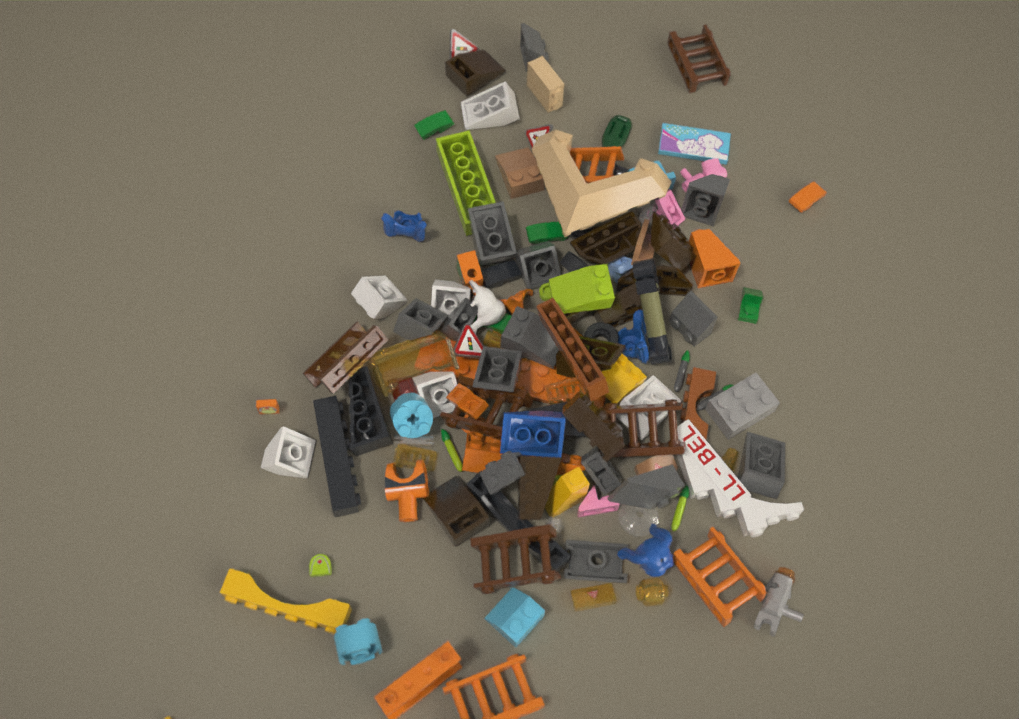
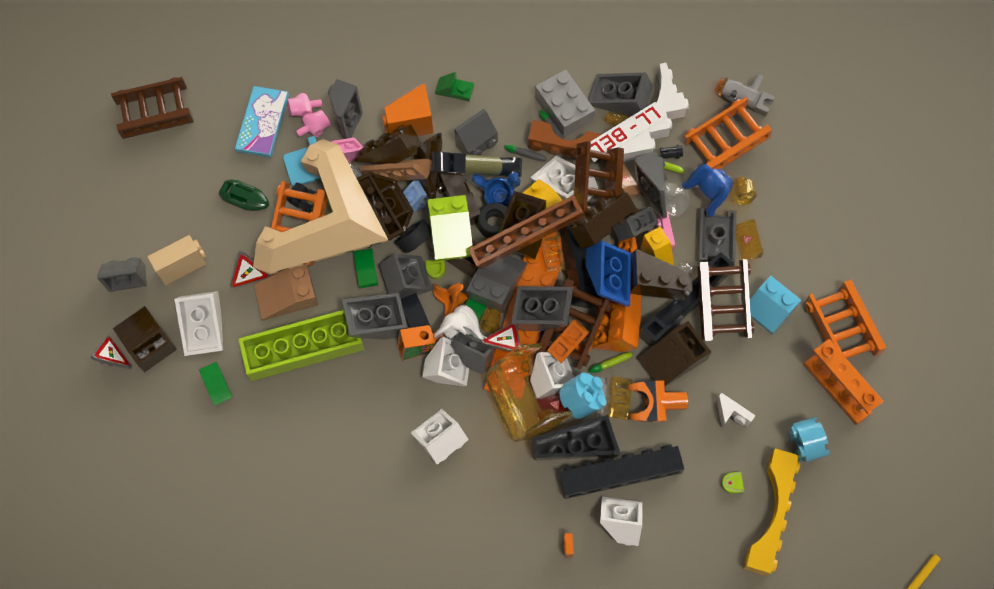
camera: 85 degrees left, 5 degrees up
(345, 357) = (529, 451): reddish brown fence -> none
(398, 562) = (728, 408): none -> white slope
(404, 225) = (355, 403): blue hair -> none
(418, 320) = (476, 388): dark grey slope -> none
(503, 472) = (648, 303): dark grey bracket -> none
(695, 520) = (672, 152): none -> black pin
(807, 196) = (336, 25): orange slope -> none

